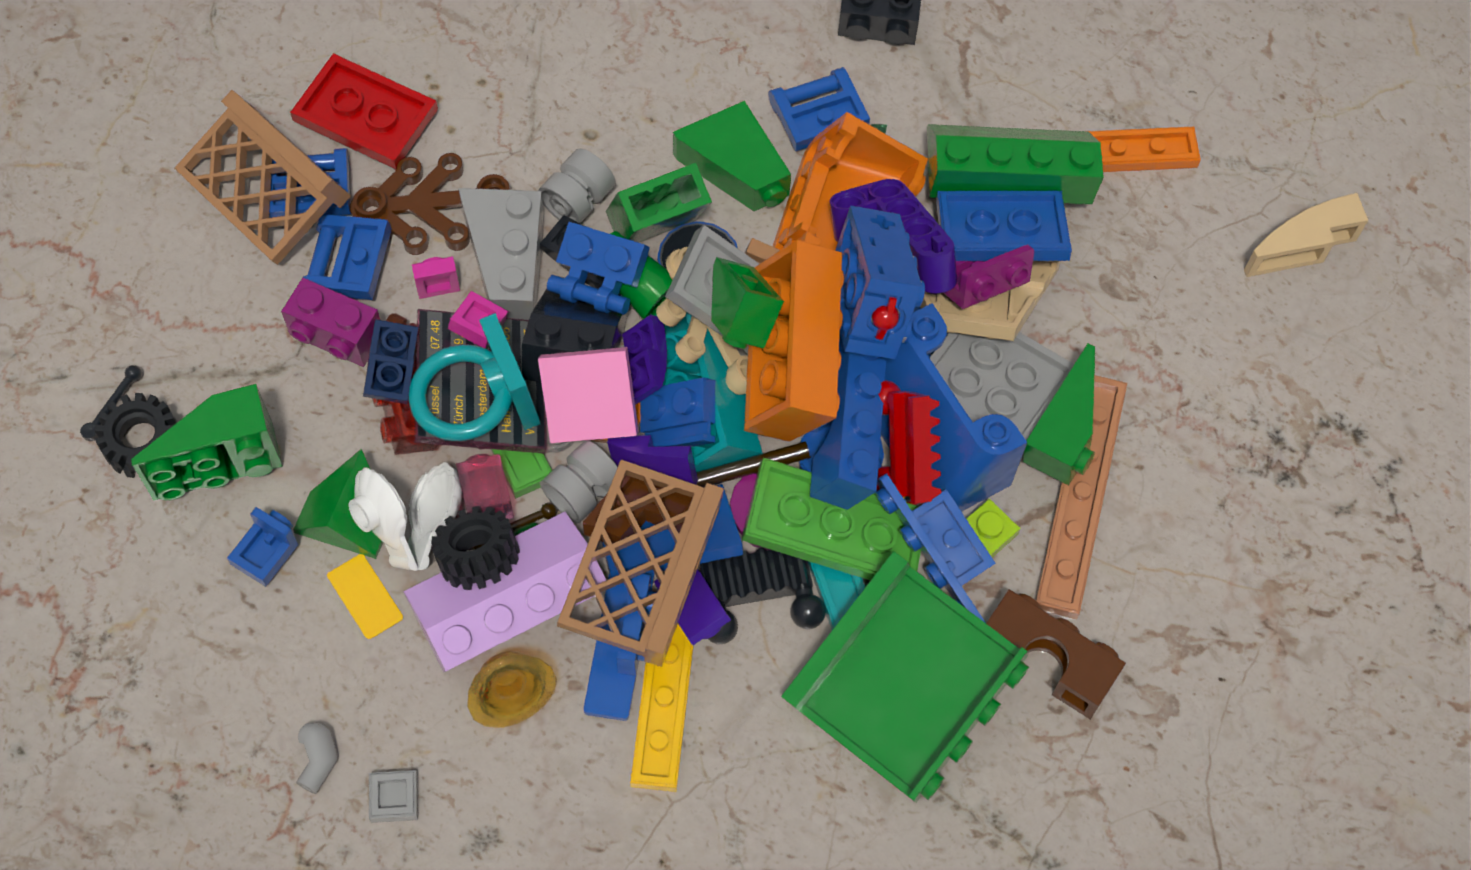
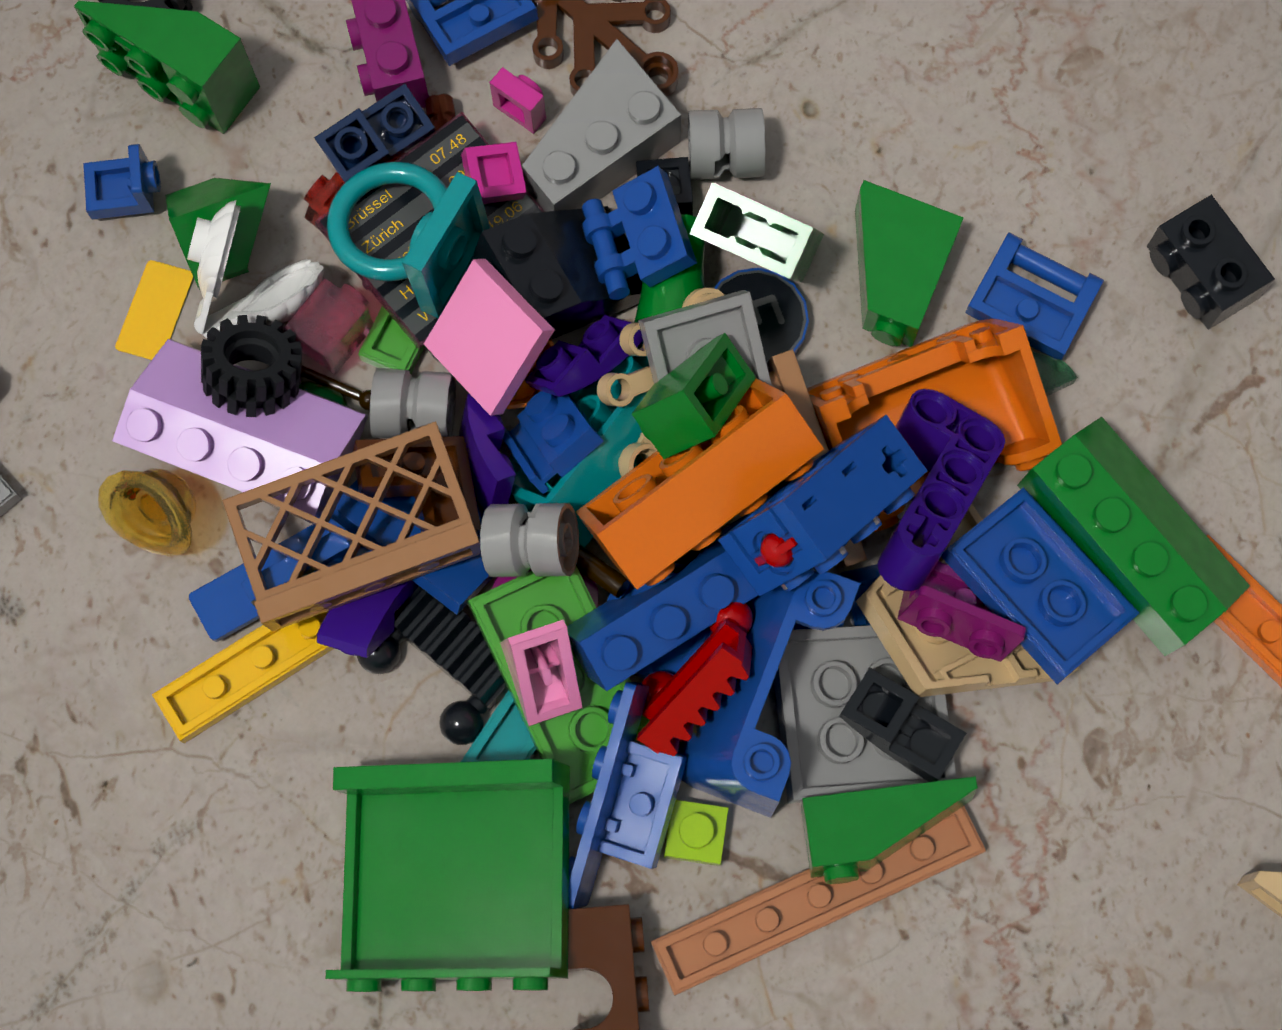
camera: 55 degrees right, 10 degrees up
(742, 465) = (521, 540): none -> light grey wheel
(826, 522) = (543, 672): none -> bright pink slope
(1024, 364) = (902, 728): none -> black slope

